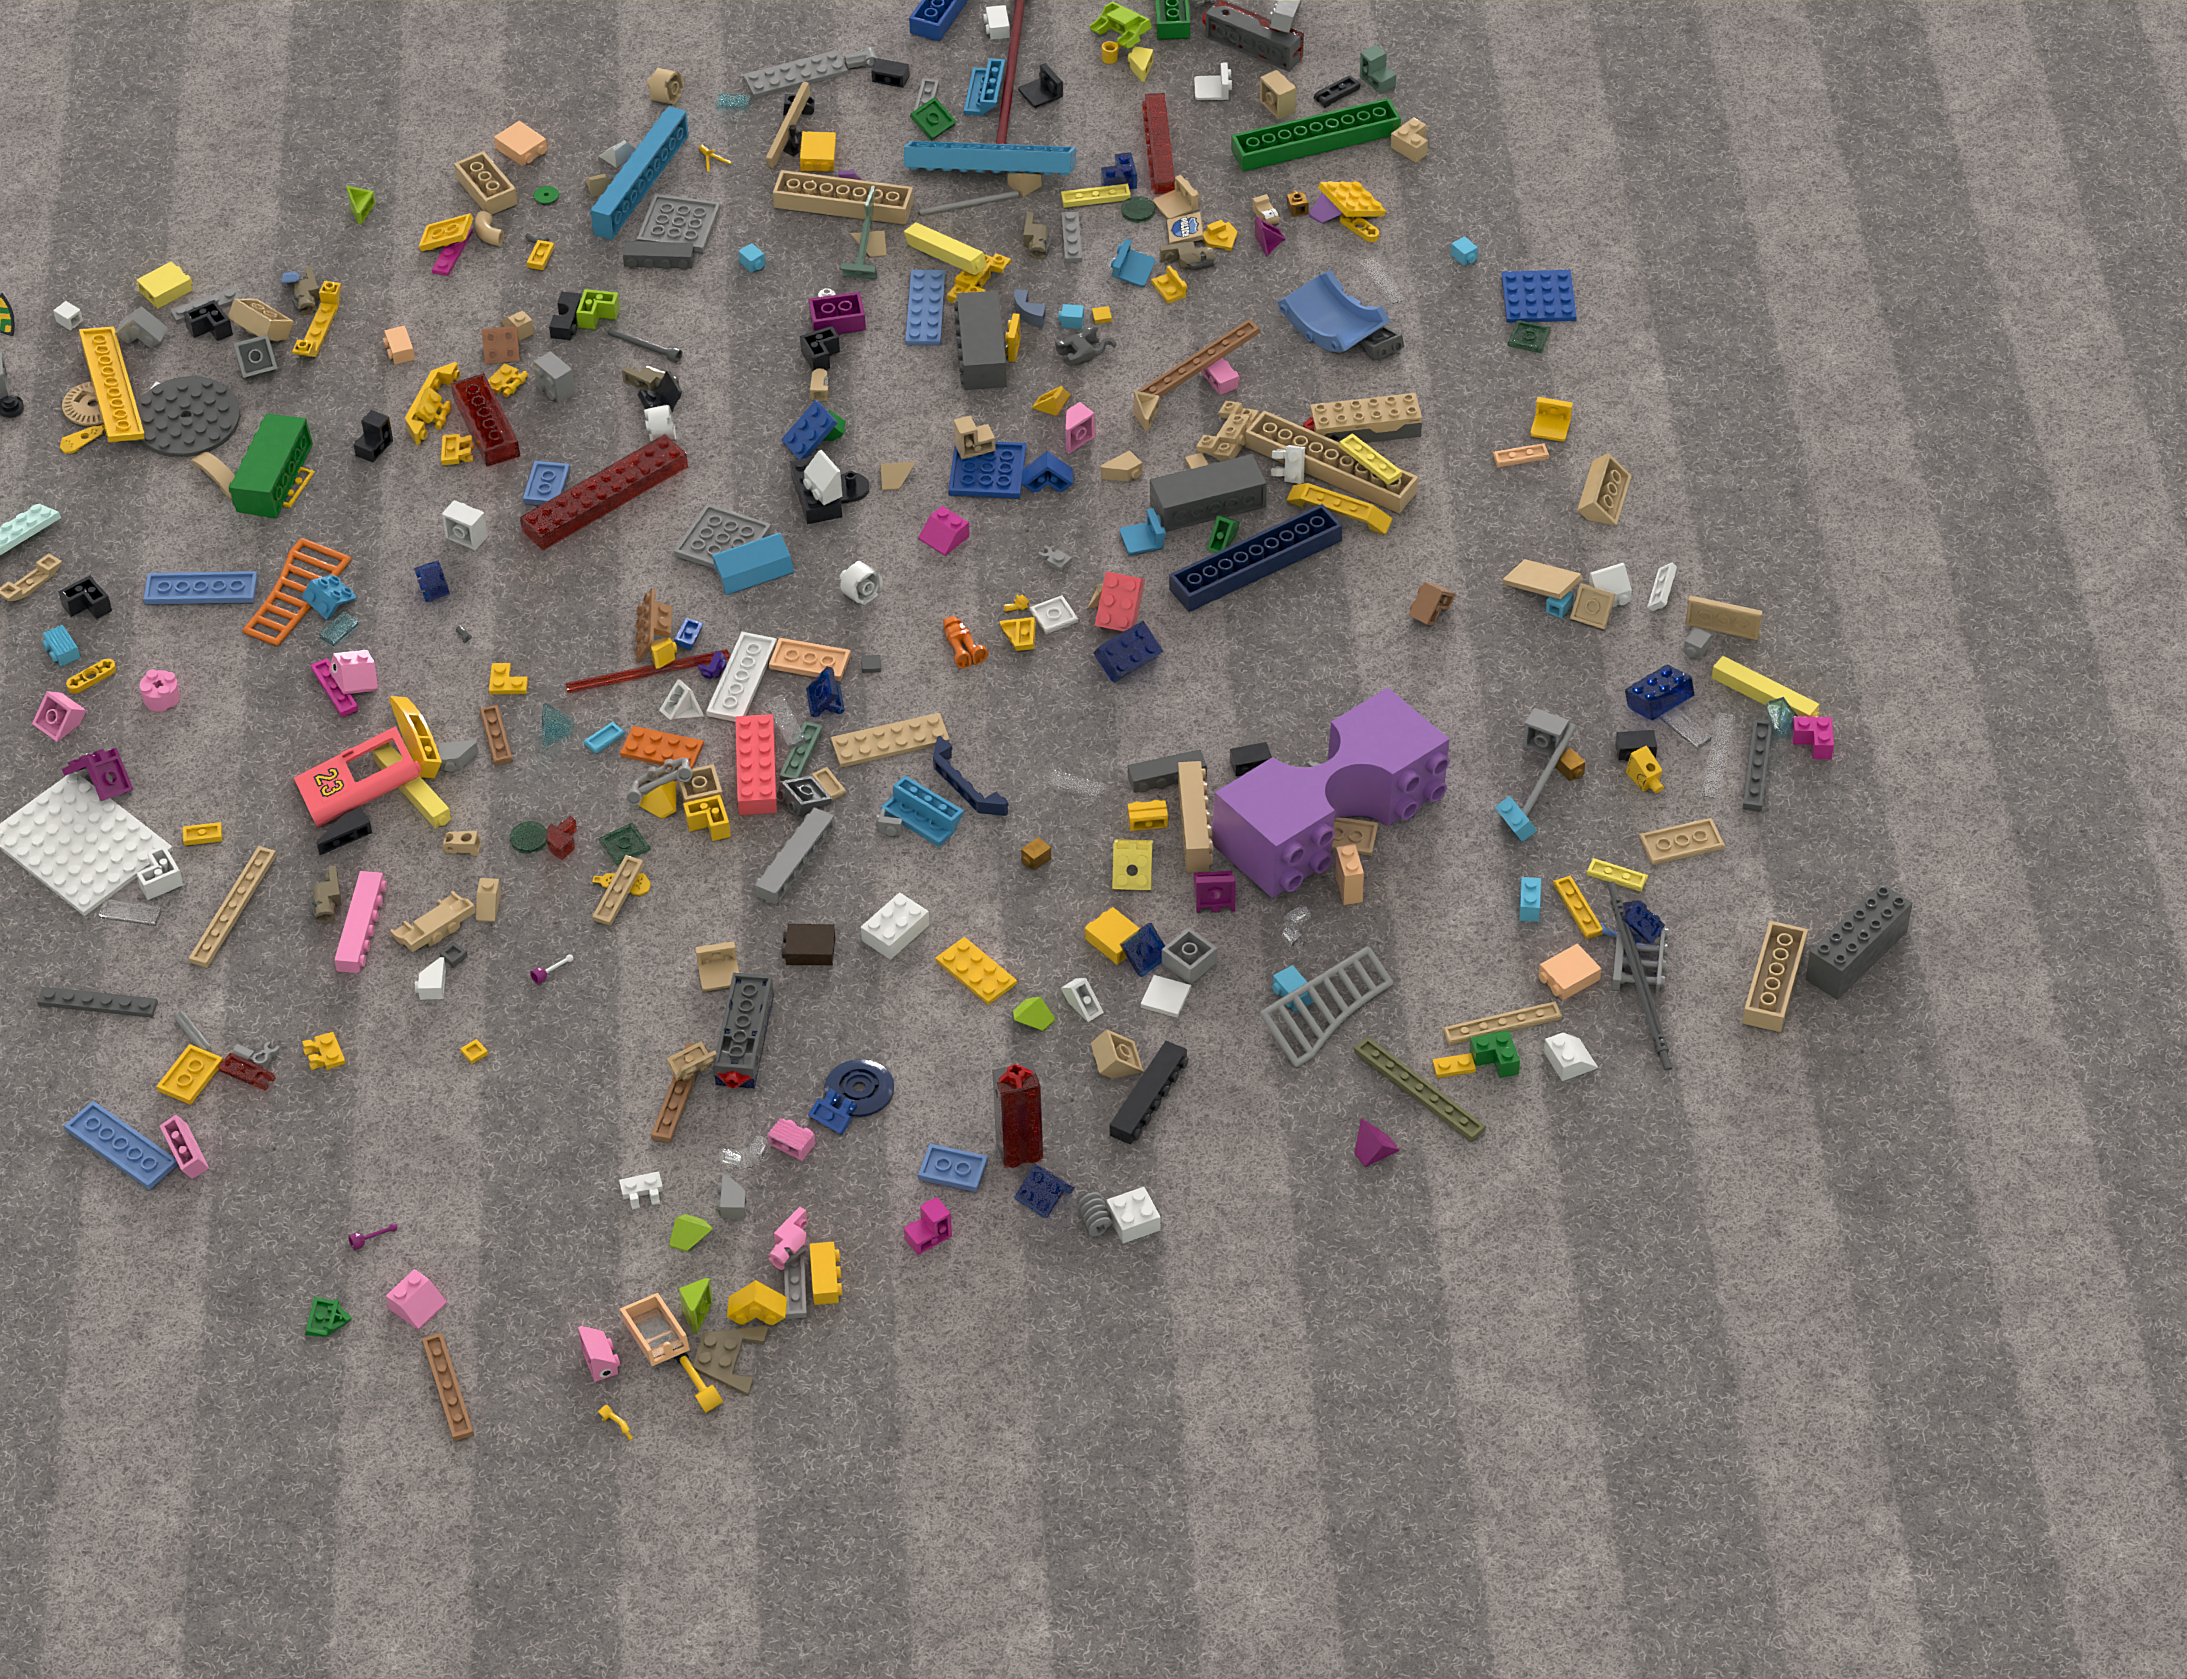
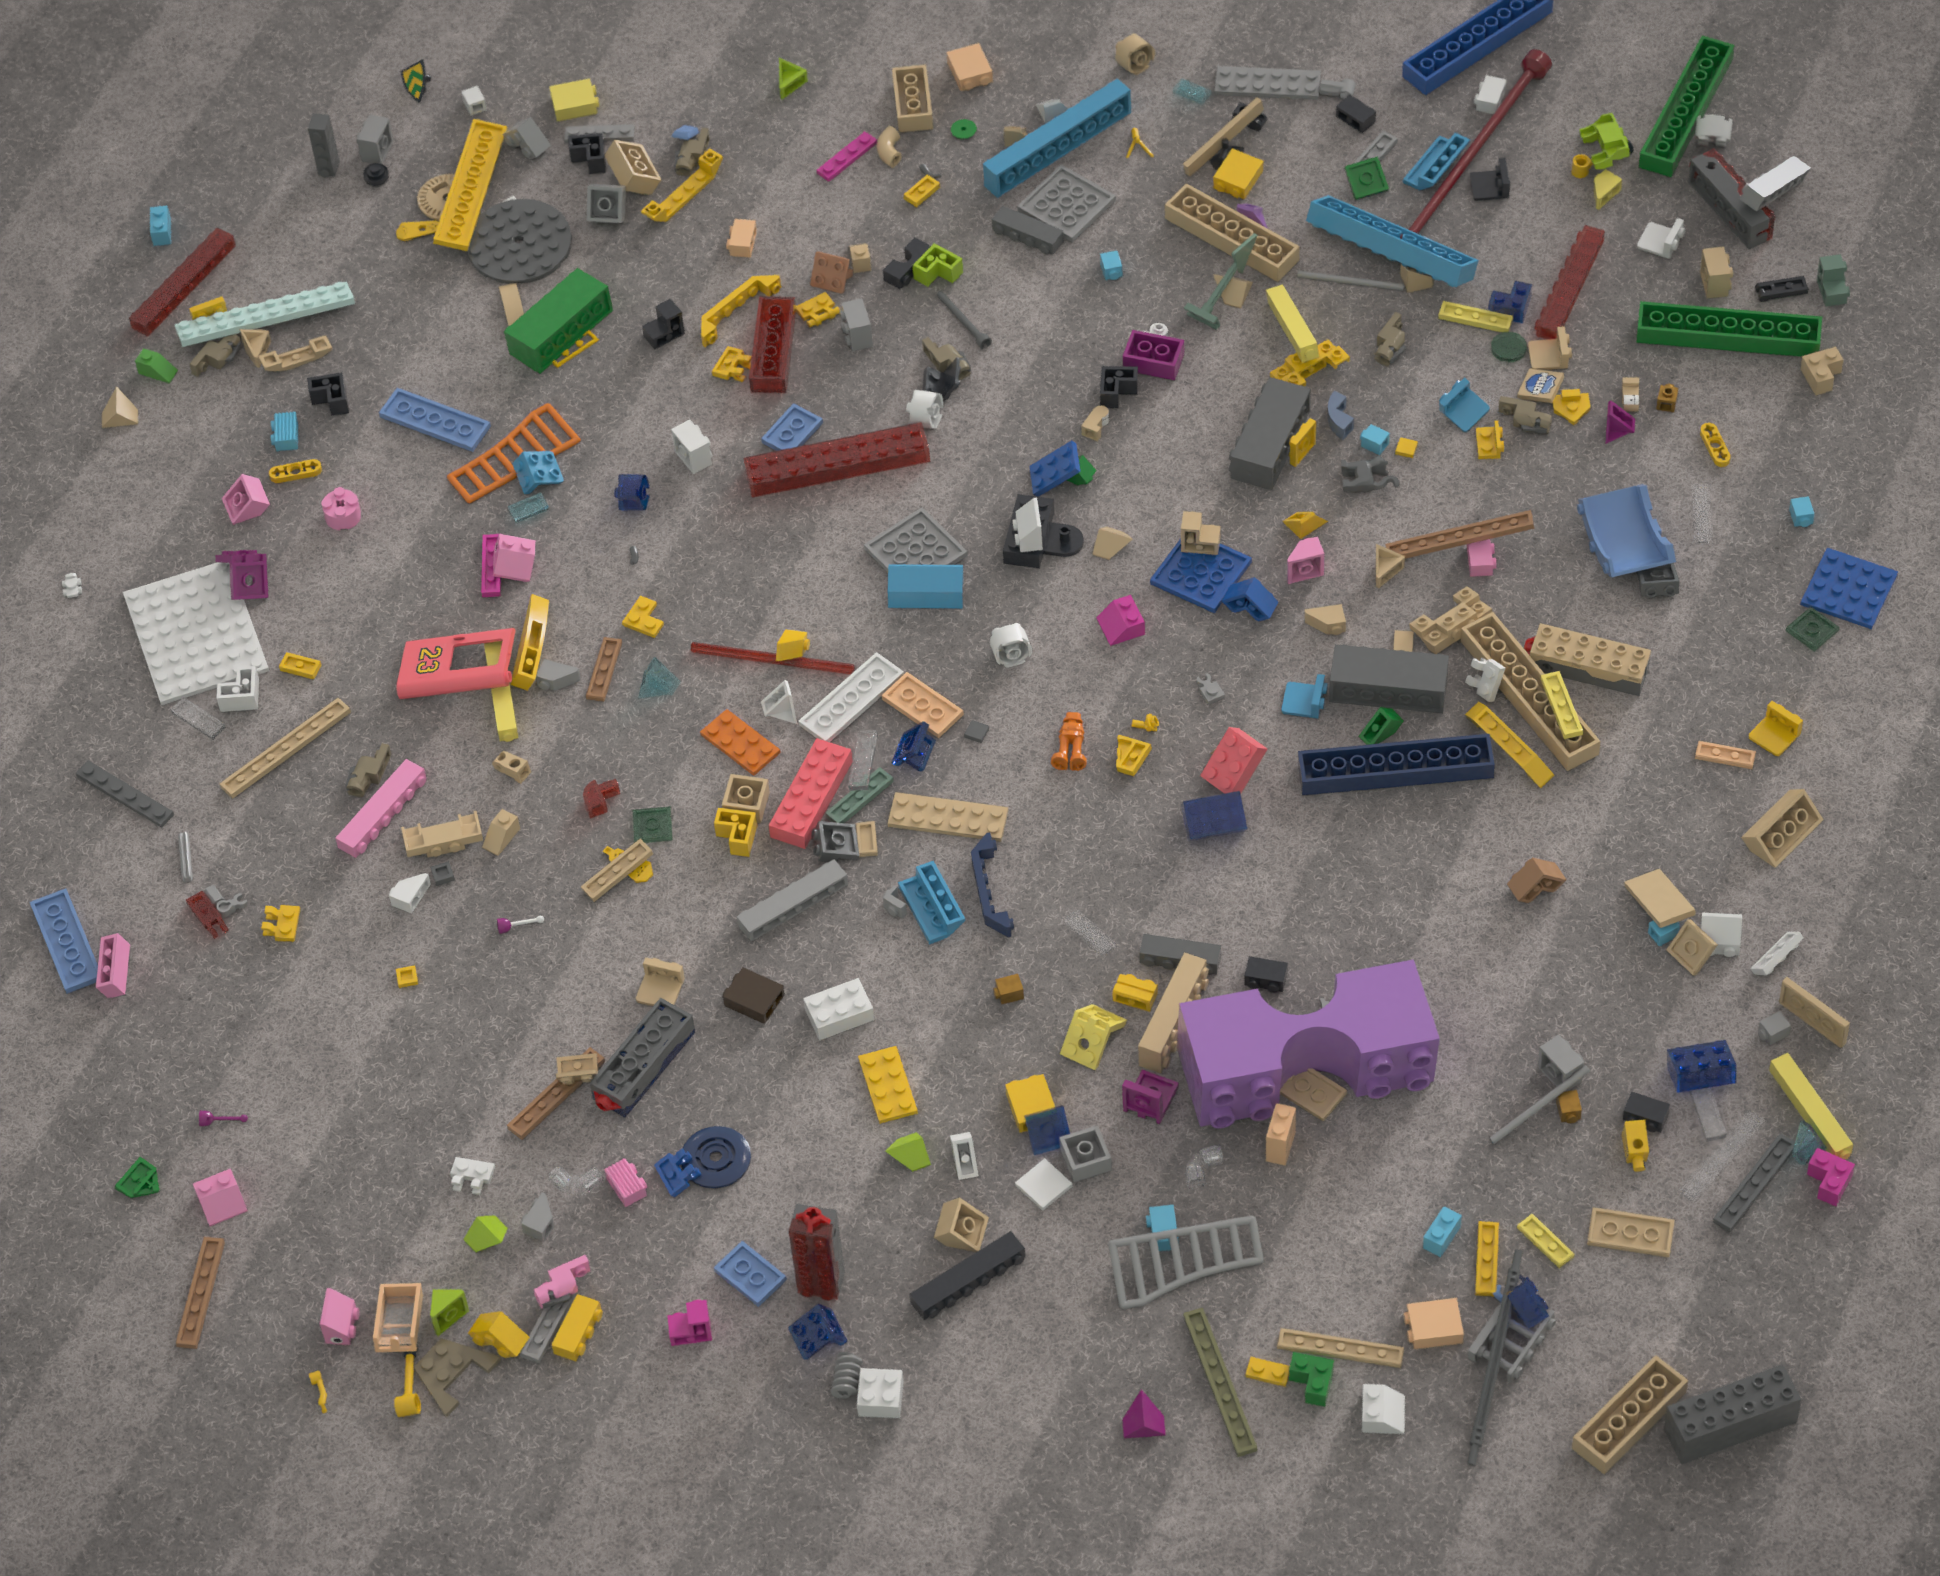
camera: 30 degrees right, 5 degrees up
(189, 1074) = (159, 897): yellow plate -> none
(345, 830) = (422, 711): black slope -> none
(429, 404) = (729, 311): yellow plate -> none
(446, 232) = (847, 137): yellow plate -> none
(528, 837) = (571, 783): clear green tile -> none
(604, 737) = (695, 710): medium azure tile -> none
(652, 619) = (799, 612): medium nougat bracket -> none
(661, 800) = (706, 795): yellow slope -> none
(683, 773) = (730, 779): light grey bar -> none
(688, 633) = (828, 635): plate -> none
(716, 666) = (832, 678): dark purple bracket -> none
(925, 307) = (1244, 377): medium blue plate -> none
(1053, 614) = (1173, 747): white tile -> none
(1071, 237) = (1427, 353): light grey plate -> none
(1324, 210) = (1694, 413): medium lavender slope -> none
(1352, 199) = (1721, 414): yellow plate -> none
(1516, 818) = (1479, 1142): medium azure brick -> none

